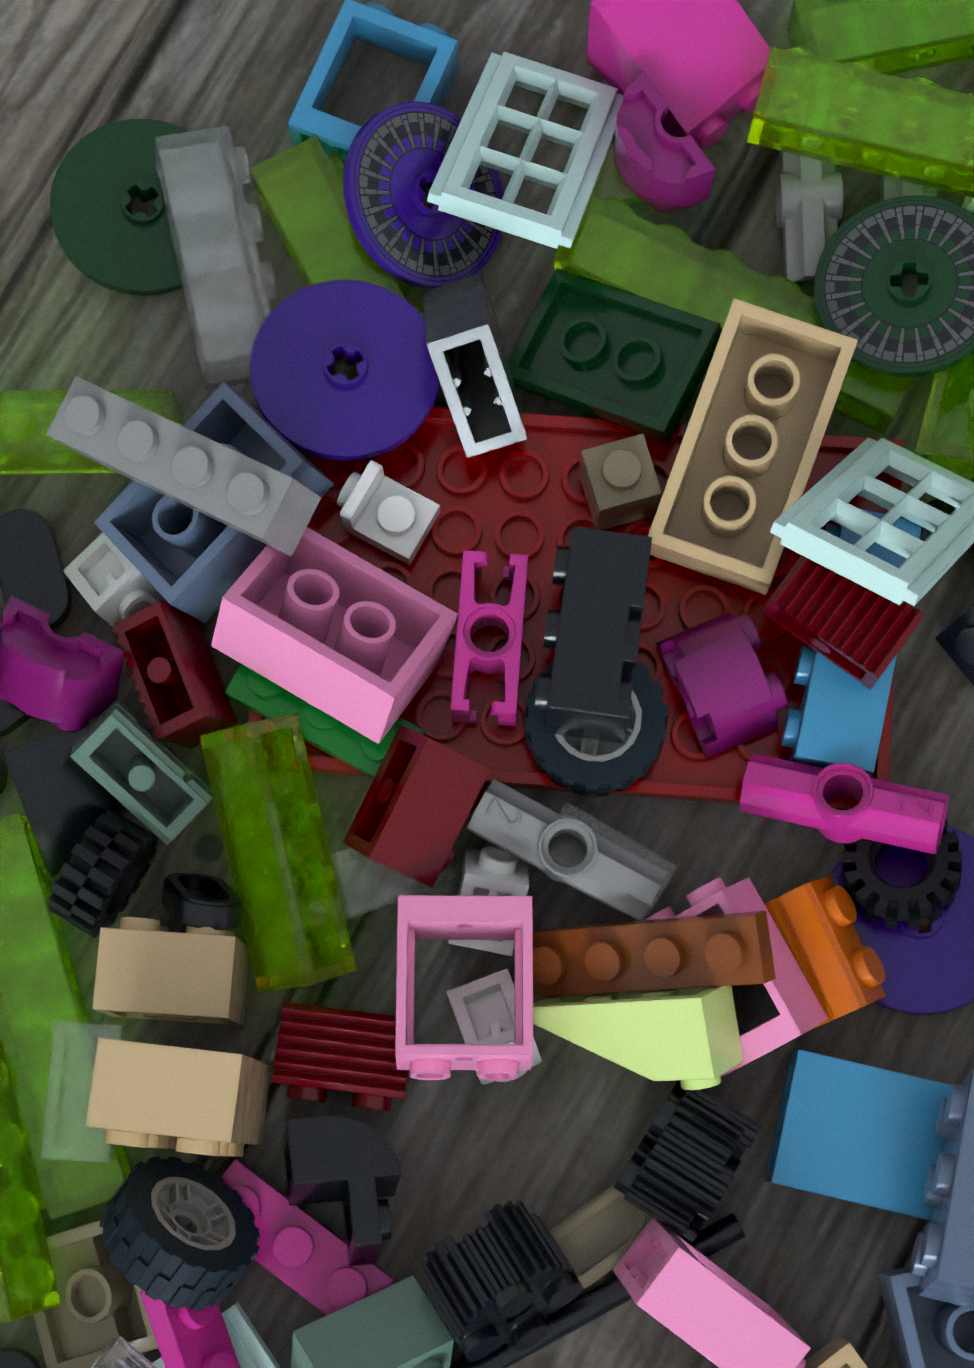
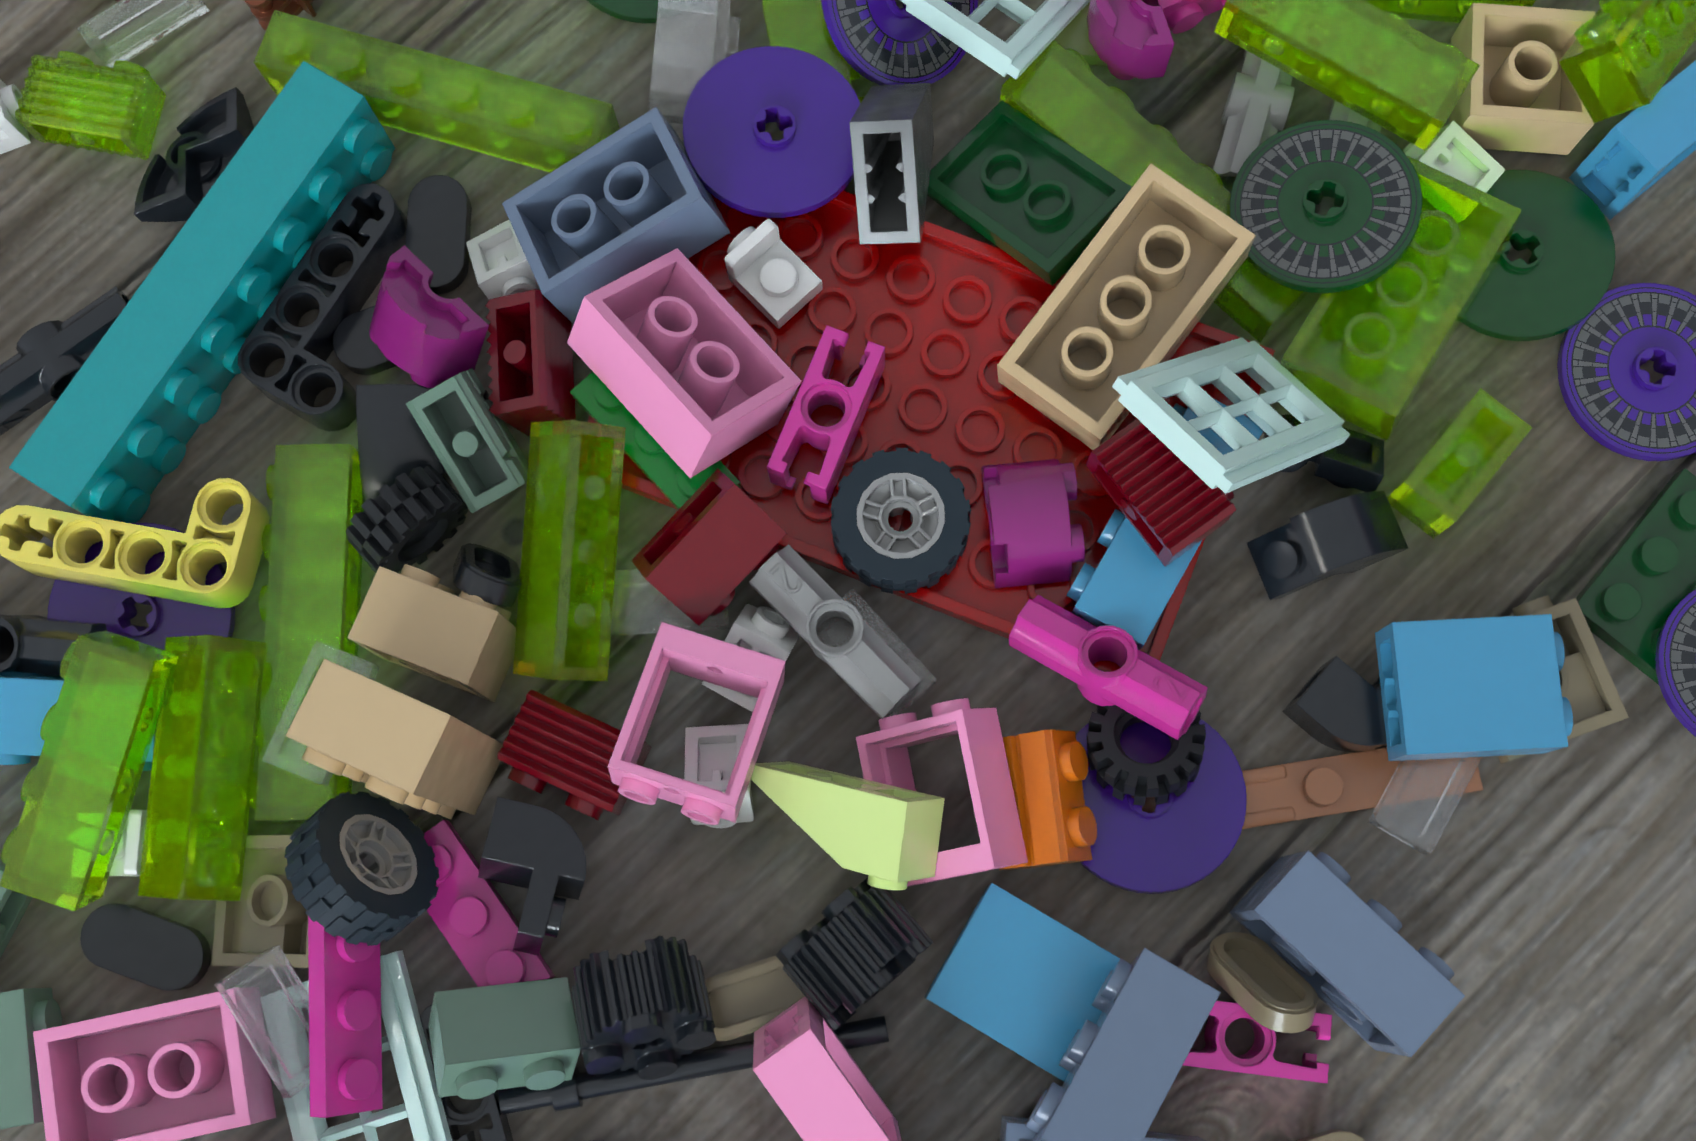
camera: 20 degrees right, 0 degrees up
(184, 465) = (591, 168): light grey brick -> none
(594, 634) = (920, 436): black wedge -> none
(619, 482) = (993, 306): dark tan brick -> none
(653, 955) = (881, 751): dark orange plate -> none

